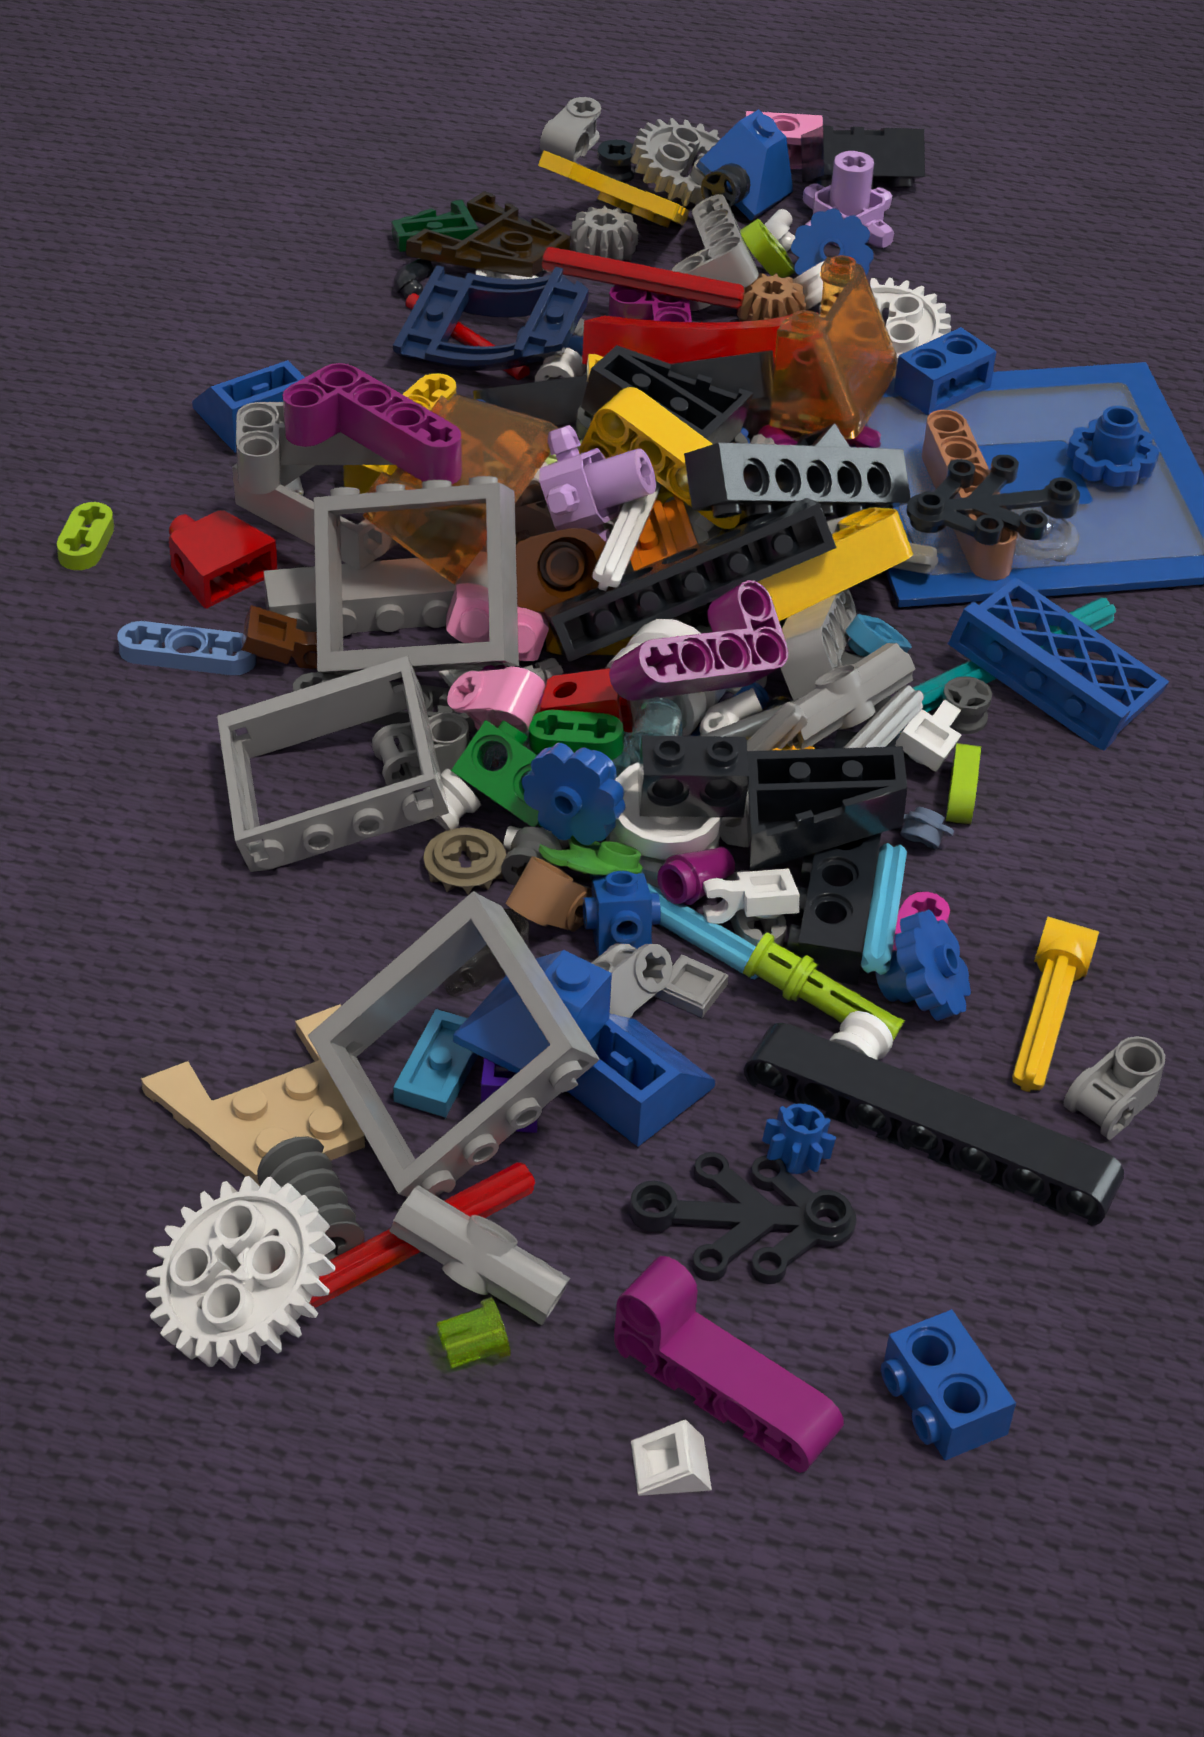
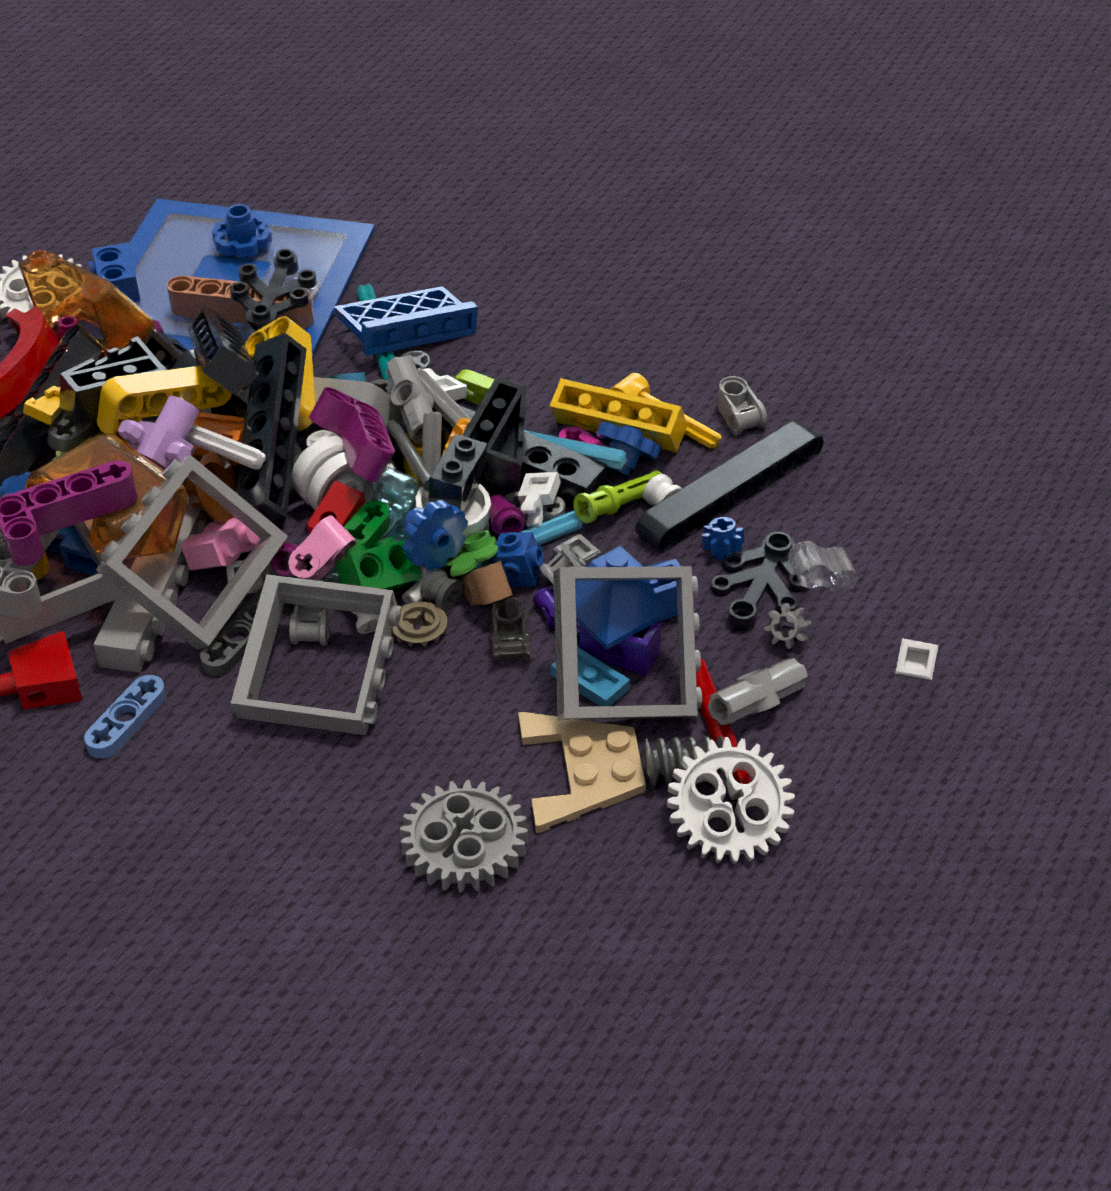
camera: 65 degrees left, 0 degrees up
(95, 1010) = (464, 836): none -> light grey gear
(276, 638) = (160, 659): reddish brown plate -> none
(474, 1335) = (807, 712): clear neon green bush -> none
(635, 1252) = (784, 634): none -> light grey gear
(726, 1376) = (848, 627): magenta beam -> none
(795, 1277) = (822, 566): none -> clear axle
(955, 1381) = (912, 533): blue brick -> none
(988, 942) = (590, 405): none -> yellow brick

